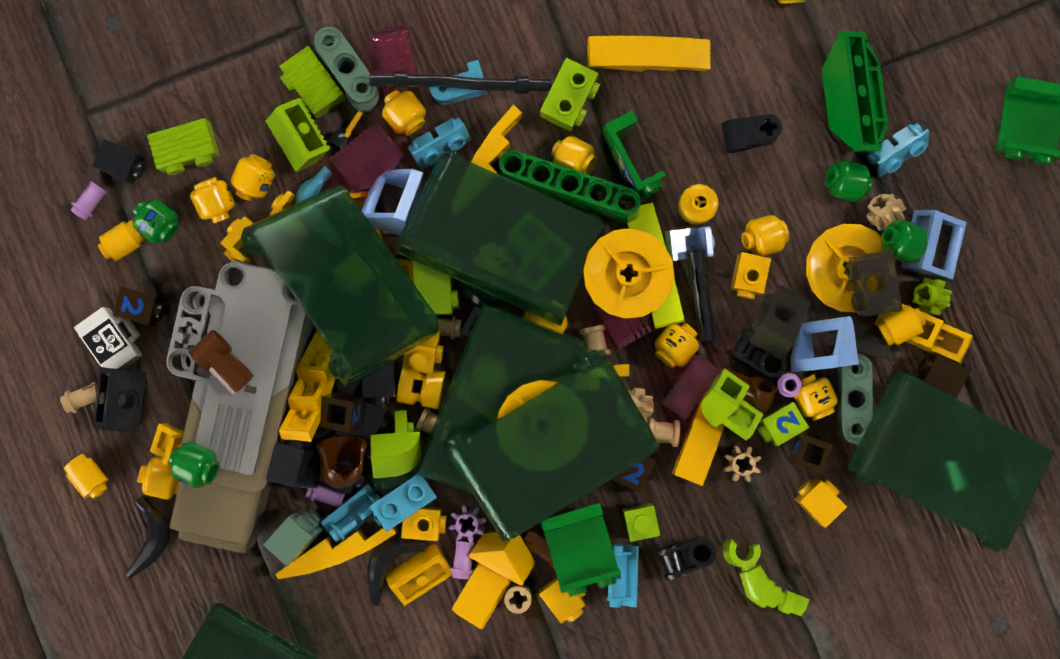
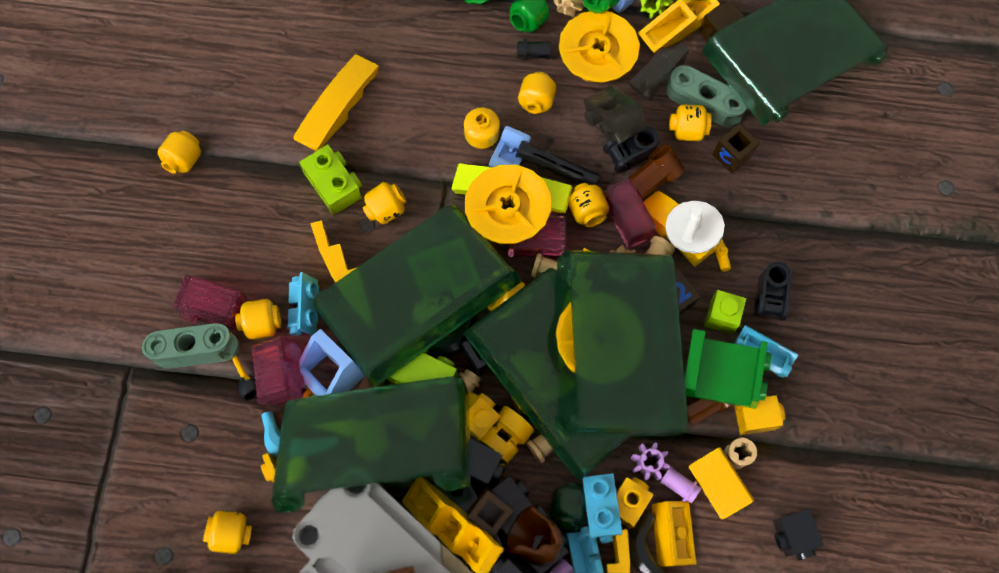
camera: 60 degrees left, 15 degrees down
(183, 146) = (163, 531): lime brick -> none
(232, 241) = (272, 525): yellow bracket -> none
(252, 177) = (230, 483): yellow head -> none
(297, 134) = (218, 419): lime brick -> none
(312, 82) = (182, 383): lime brick -> none
(396, 452) = (552, 485): lime brick -> none
(401, 80) = (231, 298): black bar -> none
(448, 96) = (267, 263): medium azure leg -> none
(504, 557) = (696, 445): yellow slope -> none
(579, 197) = (412, 204): green beam -> none
(612, 133) = (411, 162): green panel -> none
(701, 491) = (722, 256): none -> yellow helmet
(704, 455) = (694, 227): none -> white shield
(726, 405) = (662, 186): lime brick -> none
(745, 133) = (448, 60): black piece -> none
(749, 459) = (721, 200): tan gear -> none
(750, 275) = (562, 120): yellow brick -> none
(758, 586) = (821, 248): lime piece -> none
(782, 424) = (699, 159): lime brick -> none
(794, 380) = (670, 135): lavender pin -> none
(811, 206) = (536, 50): none -> black pin
(820, 501) = (779, 163): yellow brick -> none
(844, 351) = (670, 74): light blue tile -> none
(886, 296) = (618, 18): clear smoke brick -> none
(902, 326) = (668, 27): yellow brick -> none

